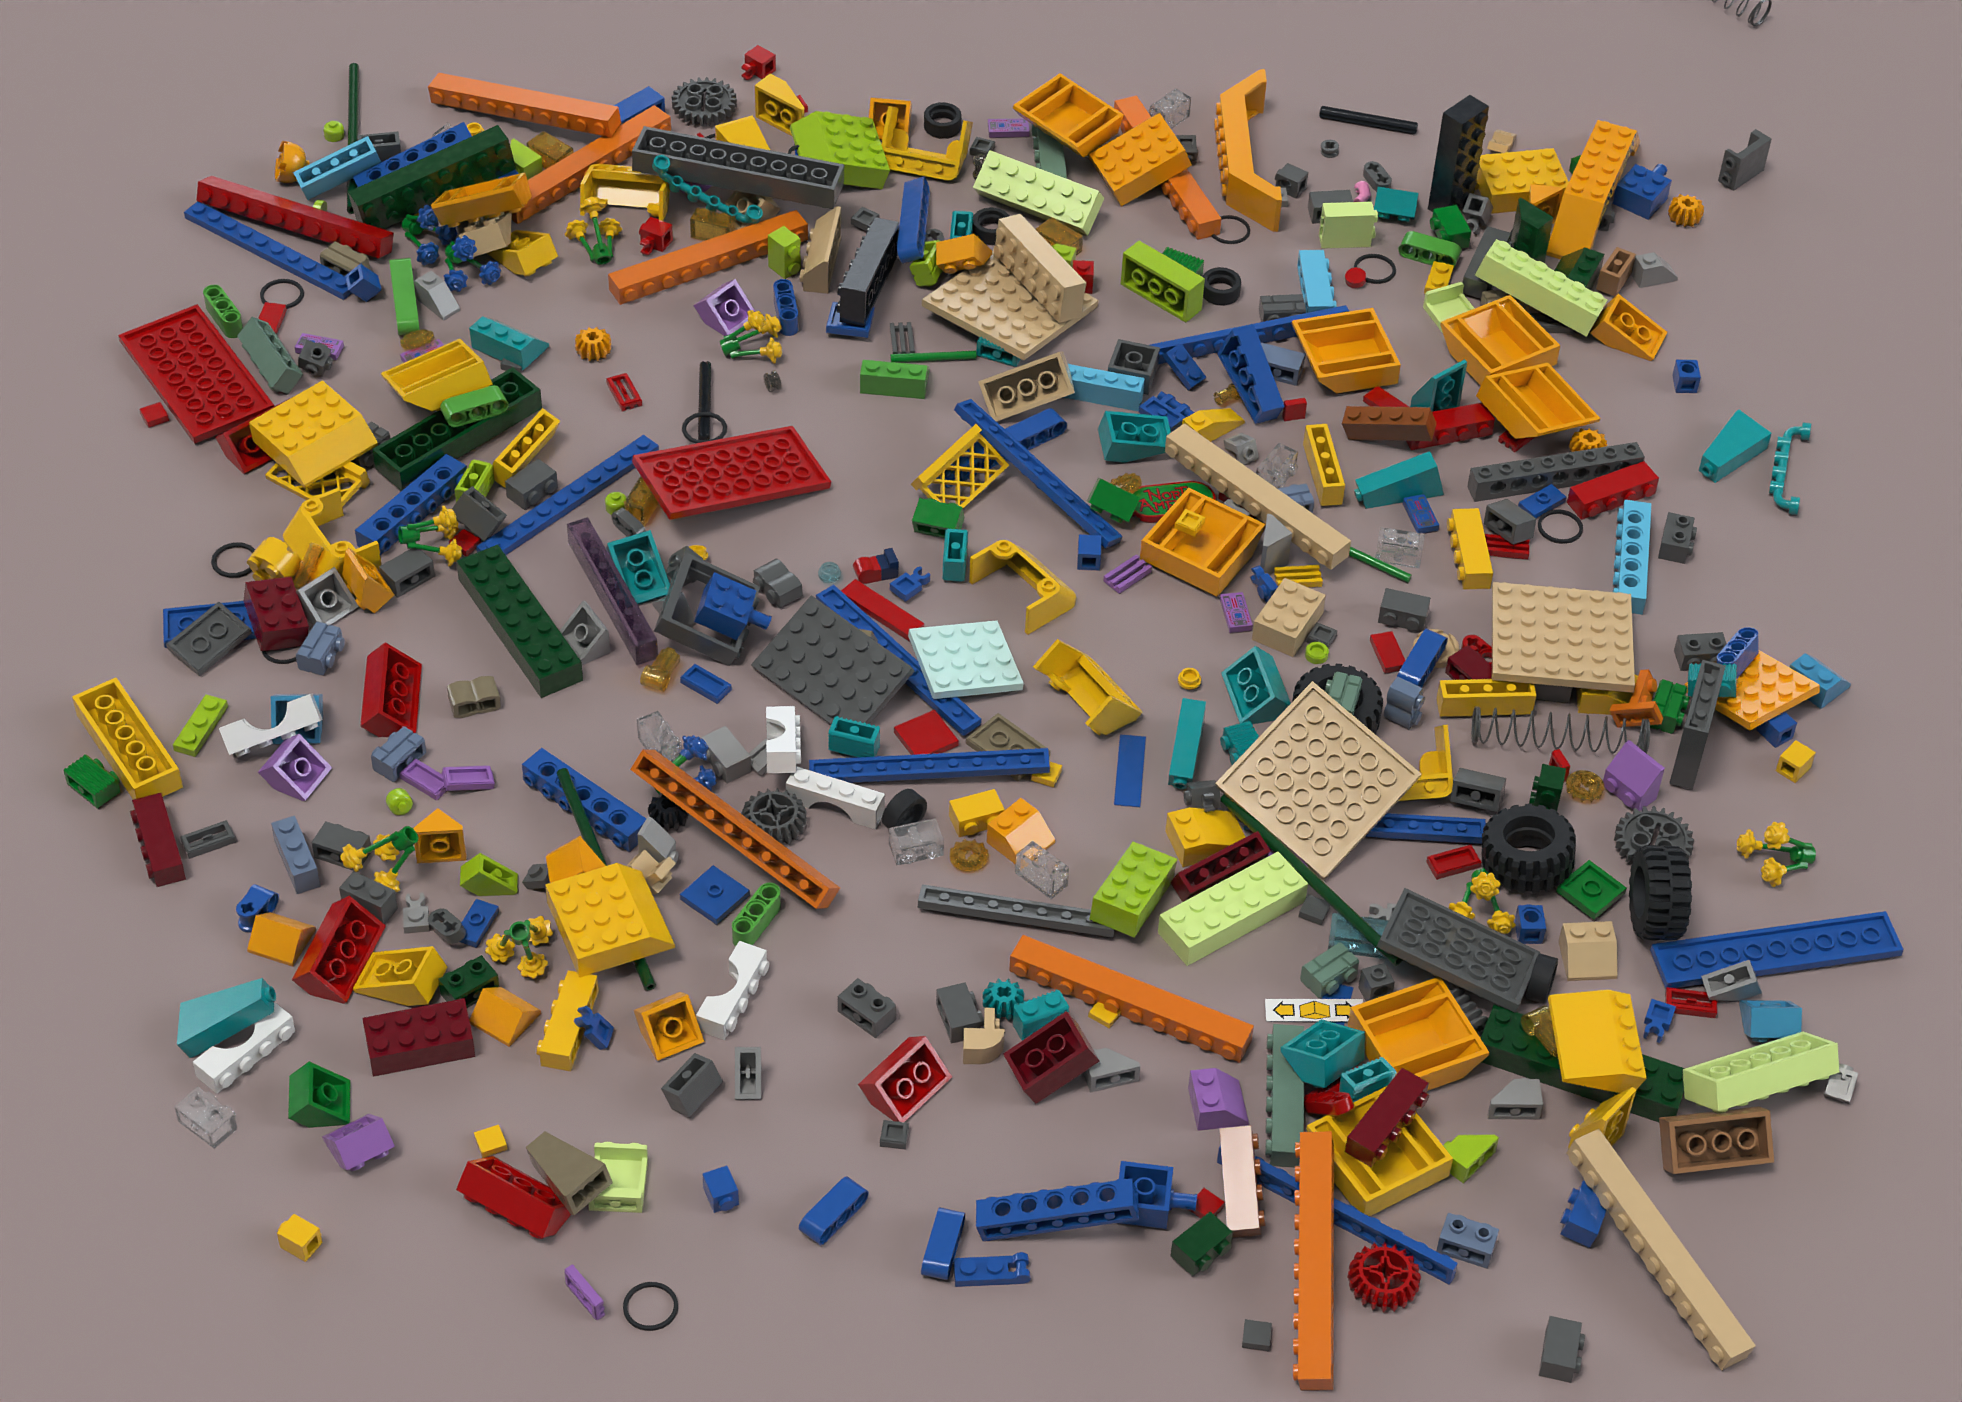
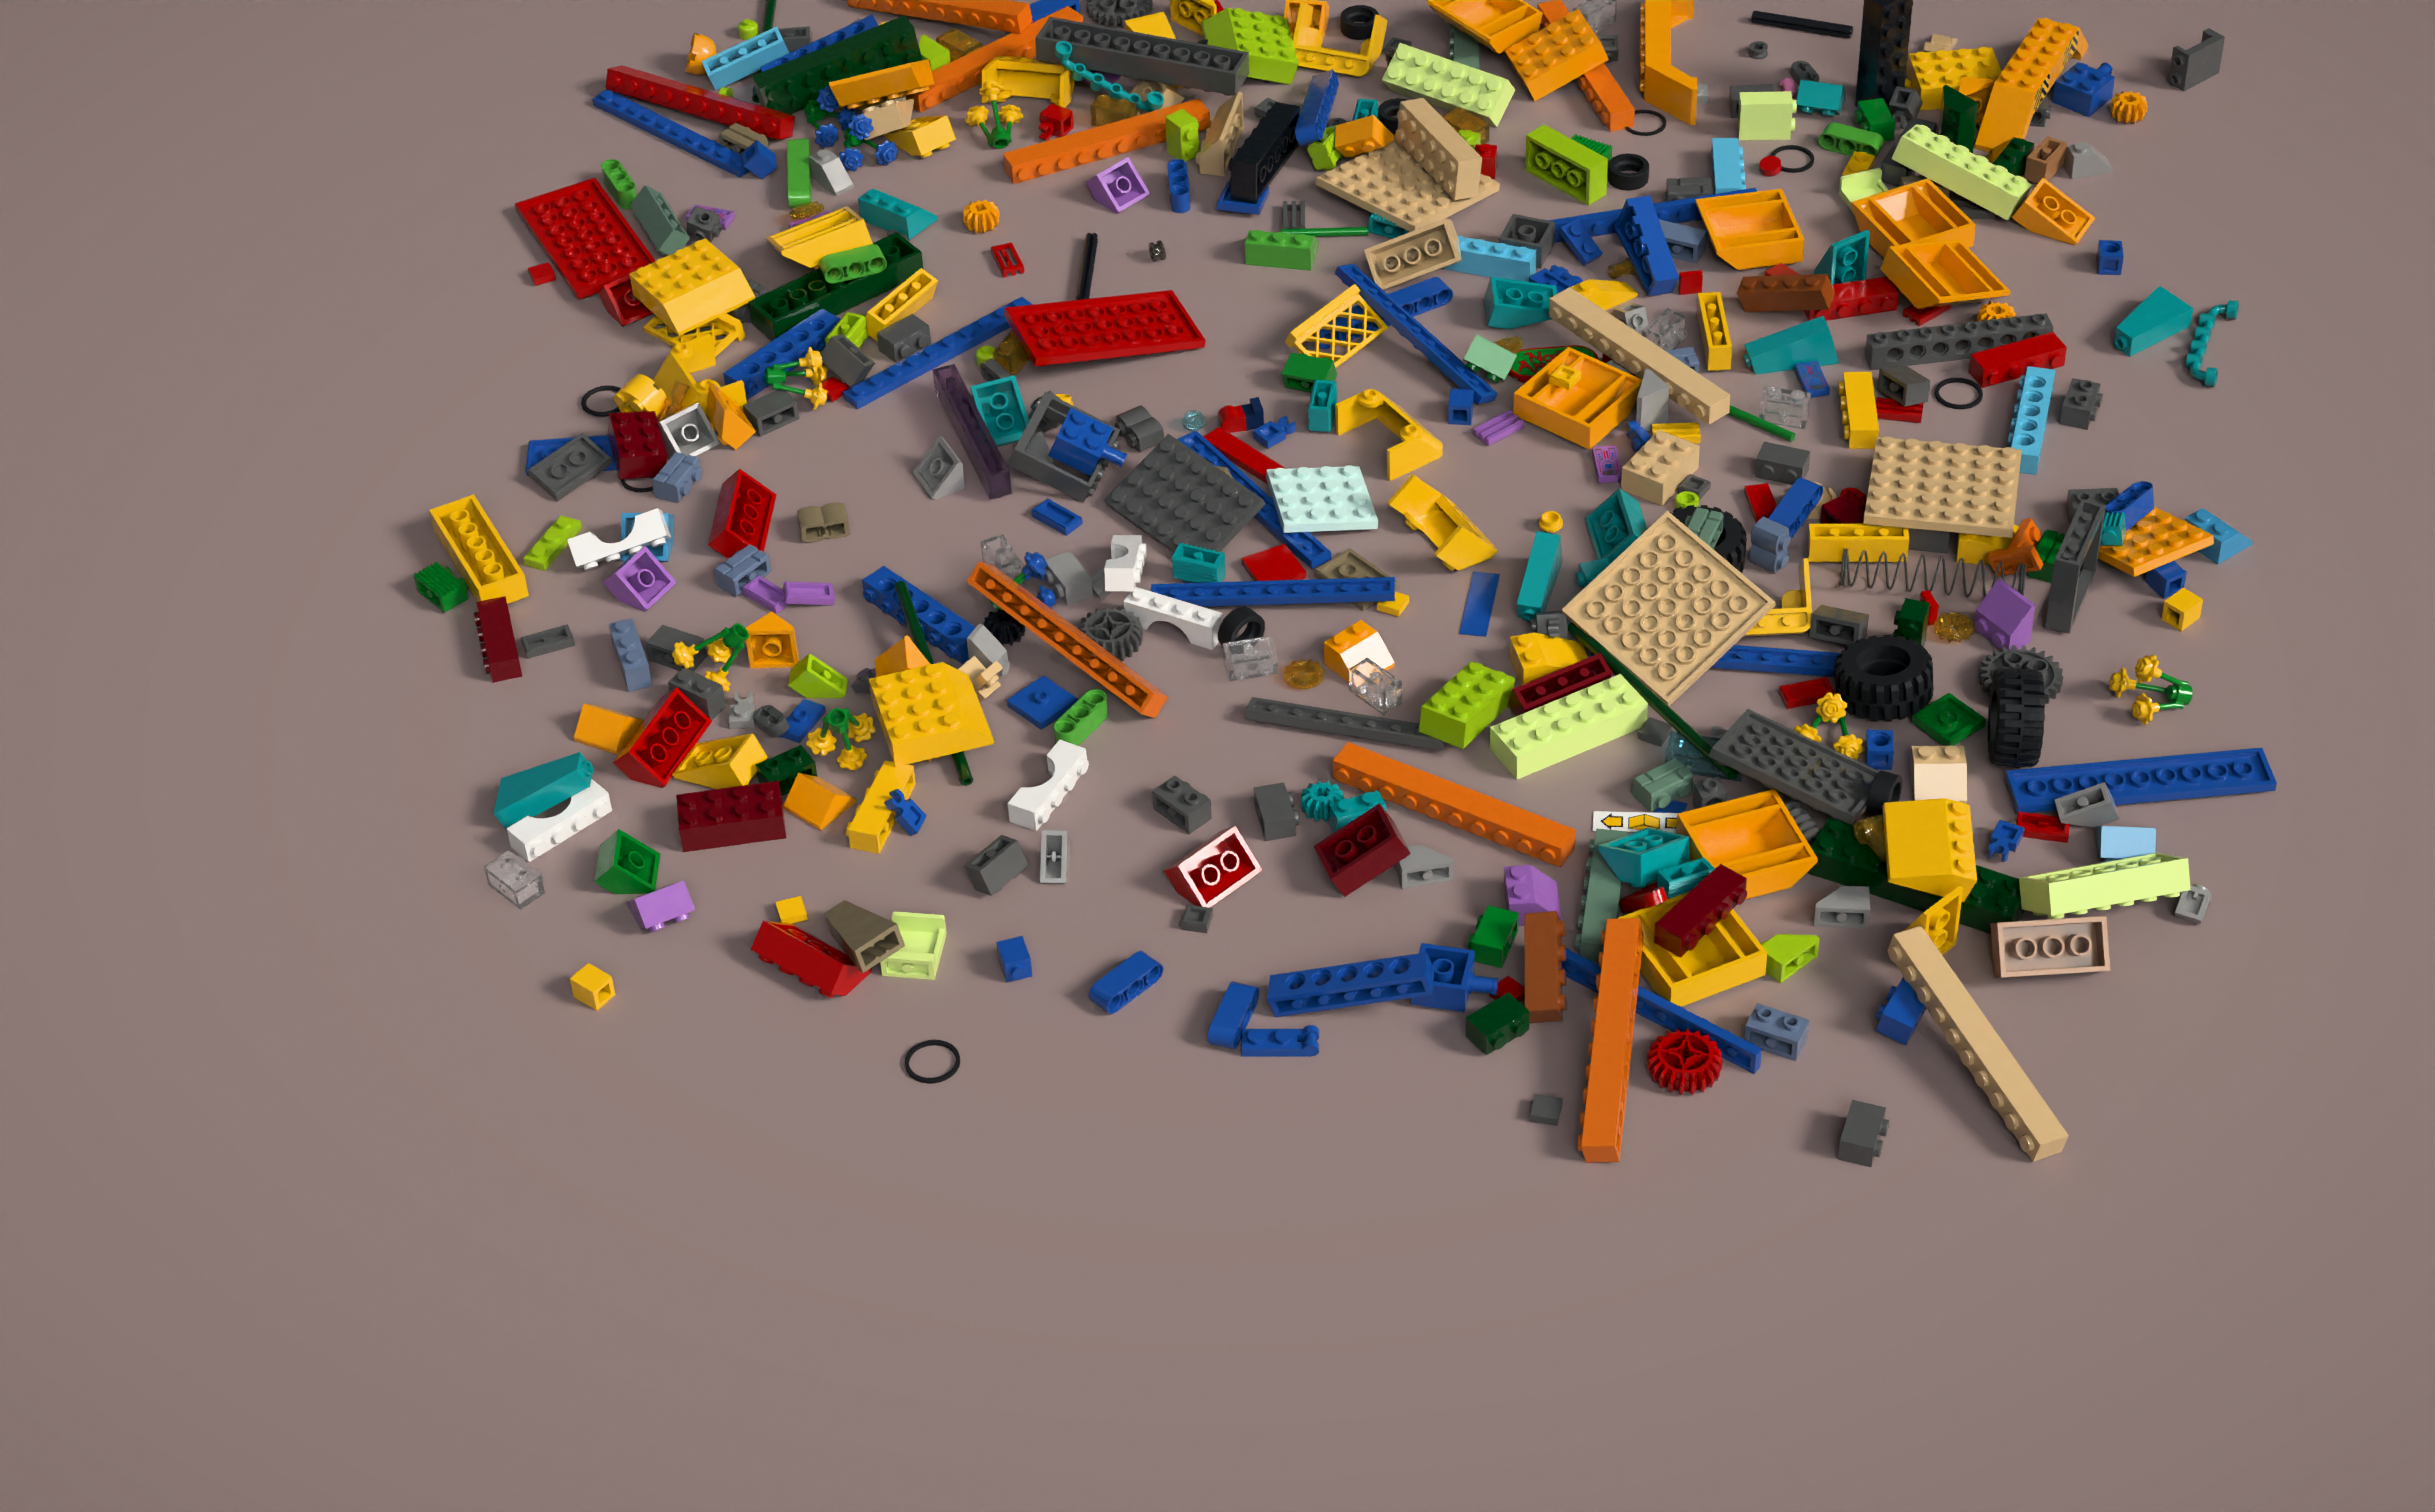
camera: 10 degrees right, 5 degrees down
(255, 902) = (588, 693): blue piece -> none
(273, 314) = (669, 188): red tile -> none
(278, 281) = (678, 160): black piece -> none
(399, 801) = (738, 612): lime piece -> none
(519, 621) = (877, 457): dark green brick -> none
(584, 1292) = (866, 1044): medium lavender tile -> none
(659, 673) = (1010, 506): clear yellow piece -> none
(669, 1025) = (981, 814): light orange slope -> none
(706, 414) = (1082, 278): black piece -> none
(756, 320) = (1144, 193): yellow plant -> none
(974, 812) = (1310, 633): yellow brick -> none
(985, 1043) = (1297, 840): tan brick -> none
(1008, 128) = (1427, 30): medium lavender tile -> none
(1102, 1015) = (1423, 820): yellow tile -> none
(1187, 1145) = (1494, 936): none -> green brick
(1292, 179) = (1715, 76): dark grey brick -> none
(1543, 501) = (1943, 369): blue plate -> none

